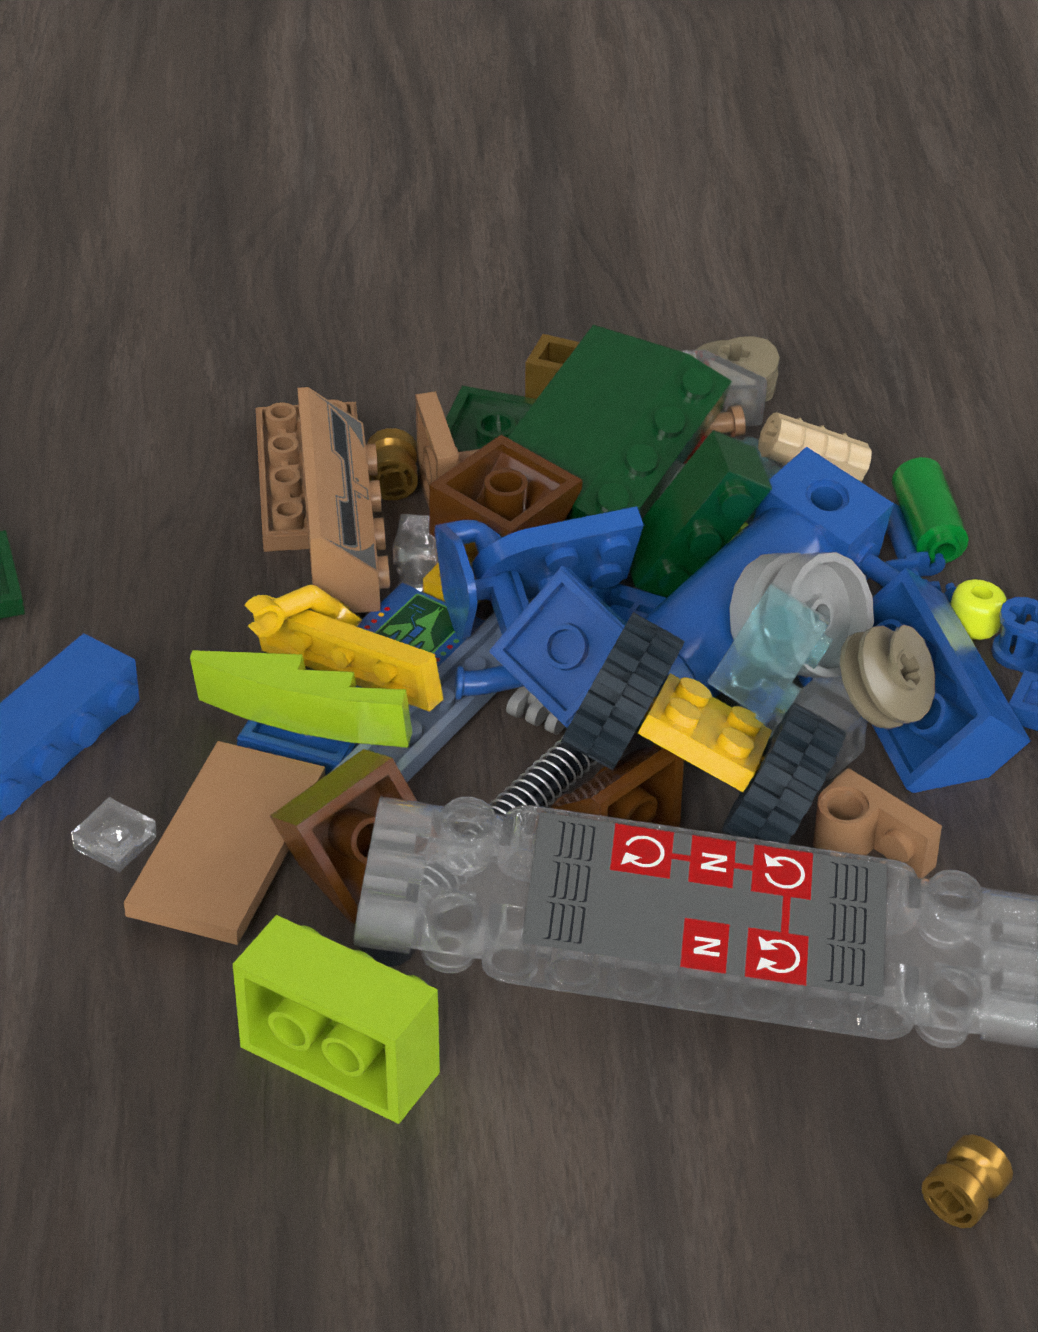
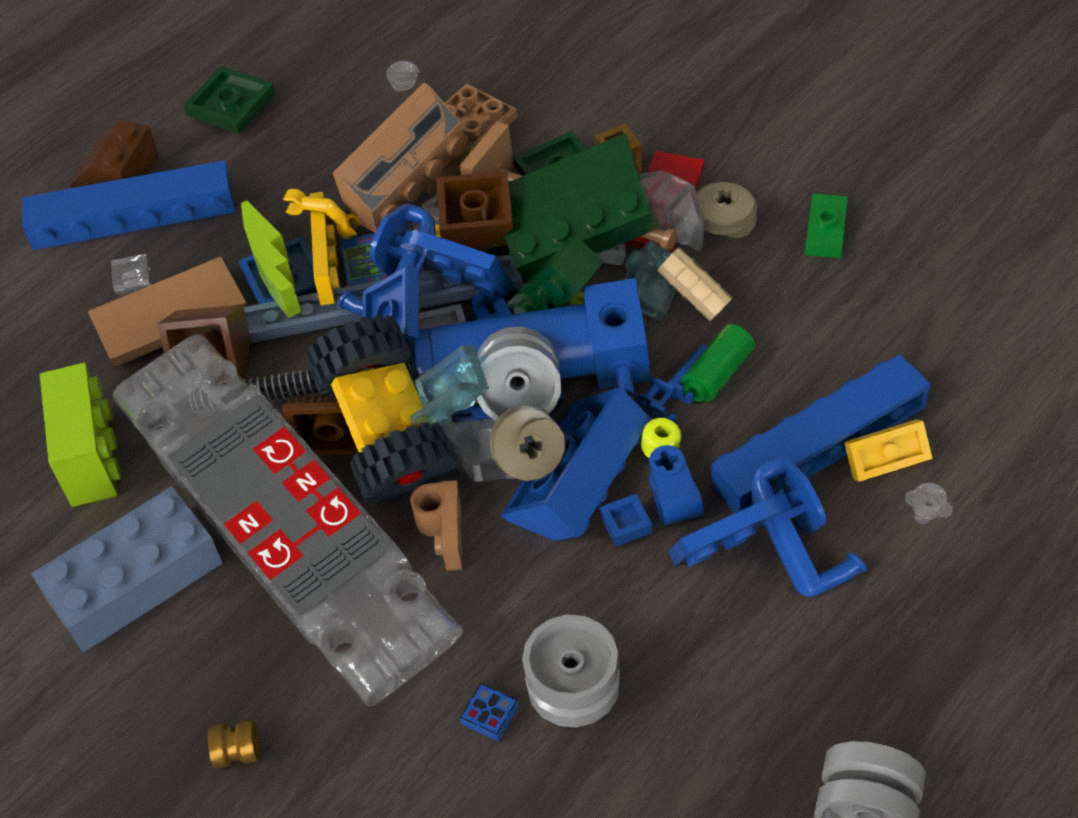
camera: 50 degrees right, 10 degrees up
(156, 441) = (402, 75): none -> clear plate
(592, 1117) = (127, 568): none -> sand blue brick
(845, 337) = (826, 226): none -> green plate

